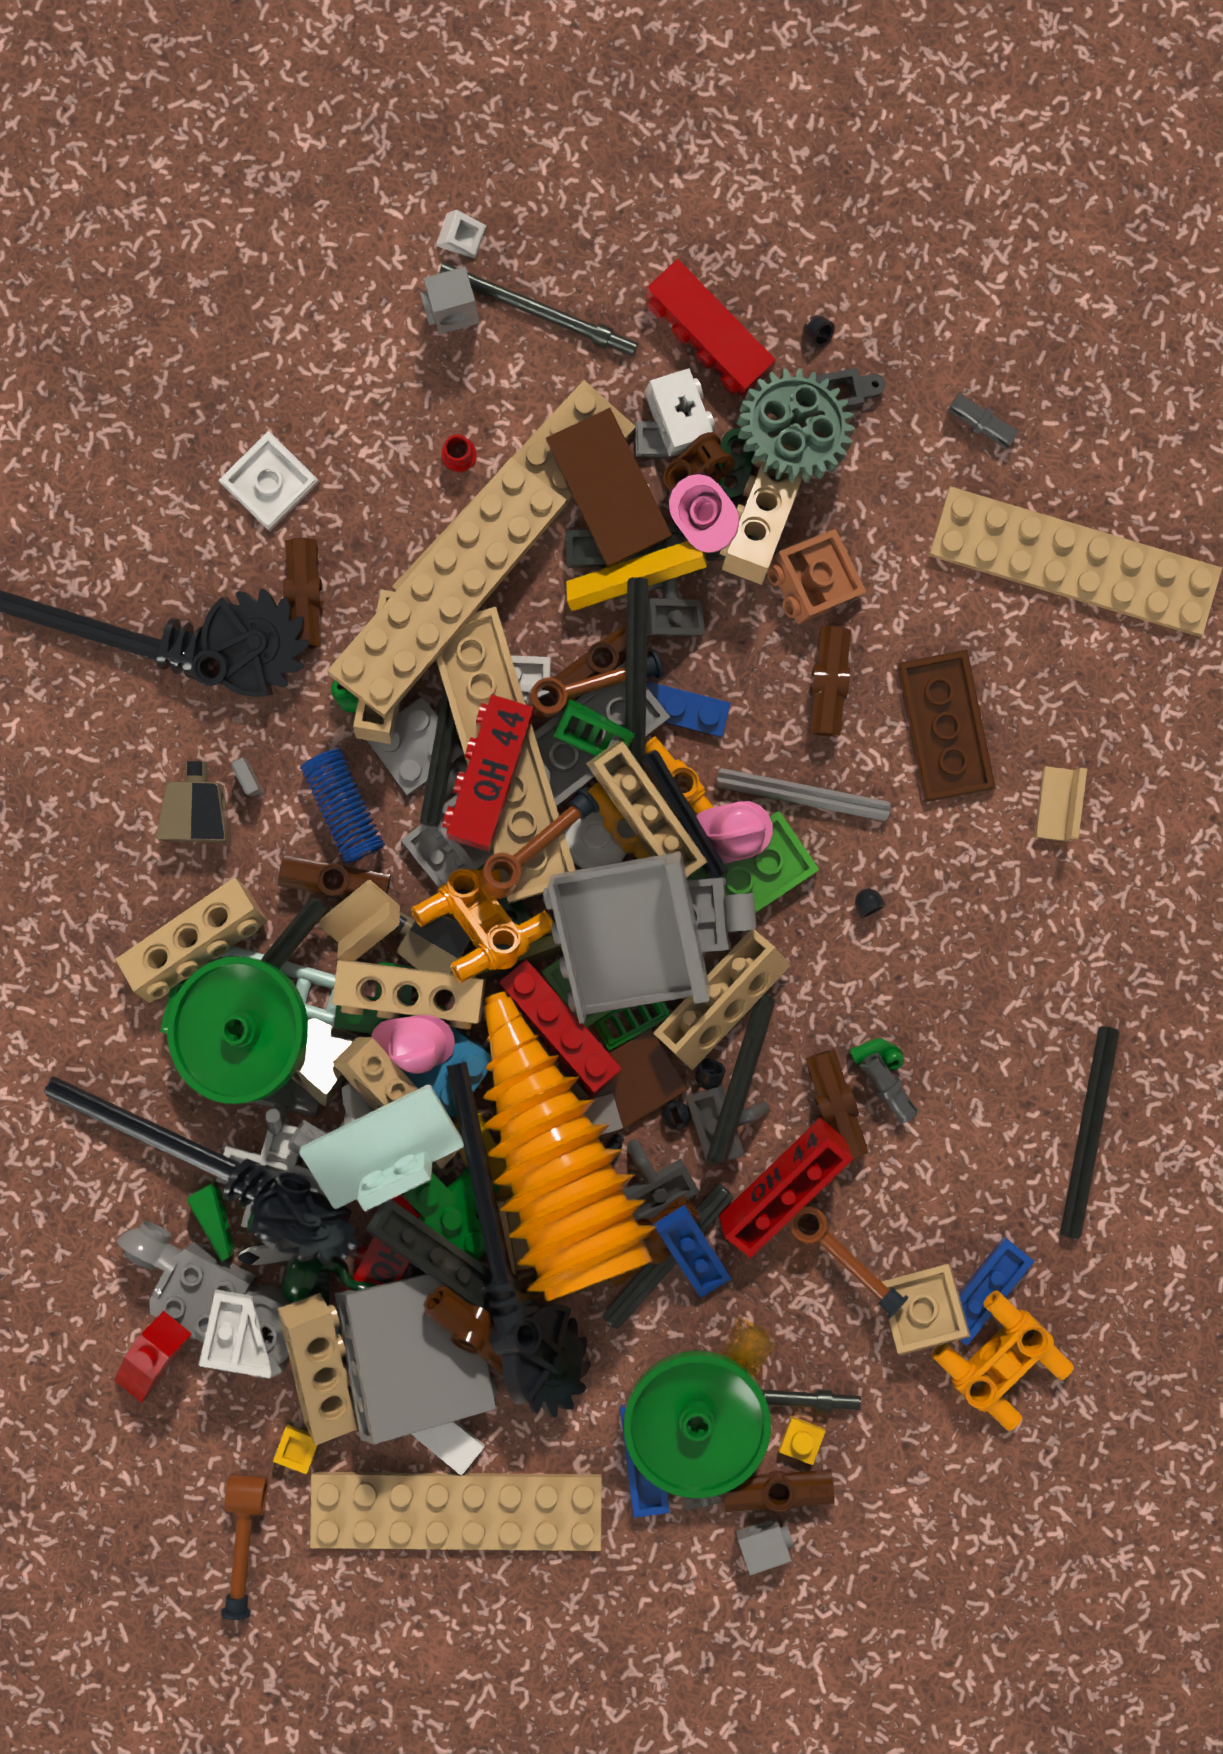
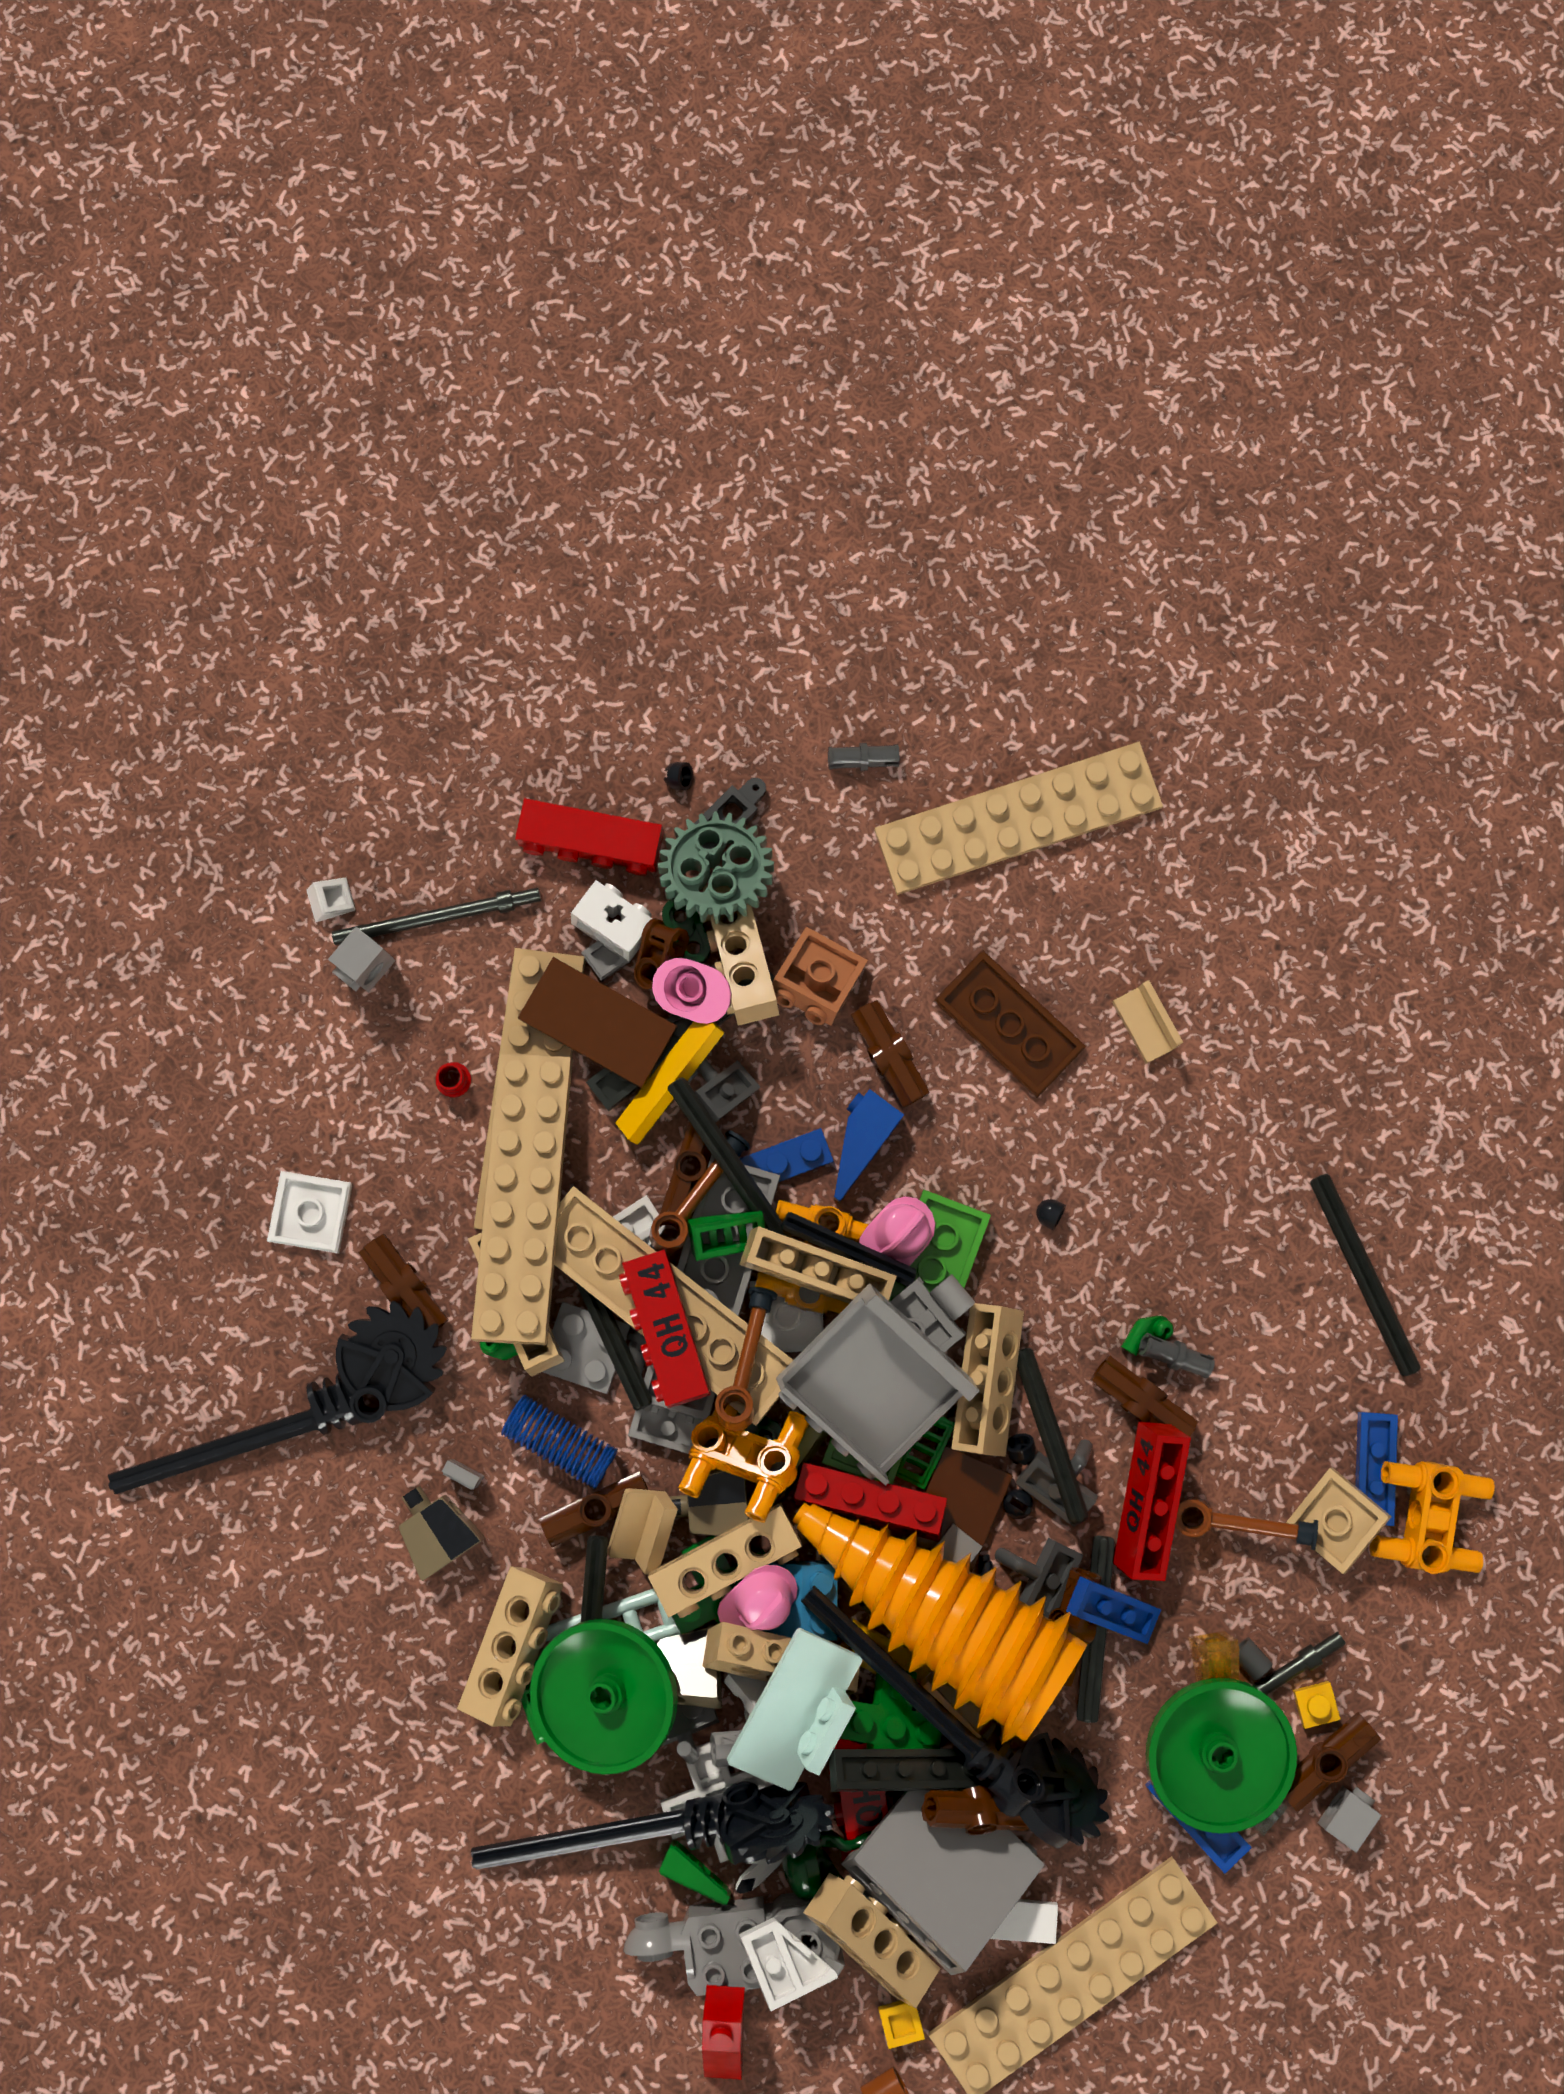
camera: 30 degrees left, 5 degrees down
(766, 731) = (866, 1131): none -> blue slope
(776, 1369) = (1253, 1659): none -> dark grey hinge
(803, 794) = (933, 1162): light grey axle -> none

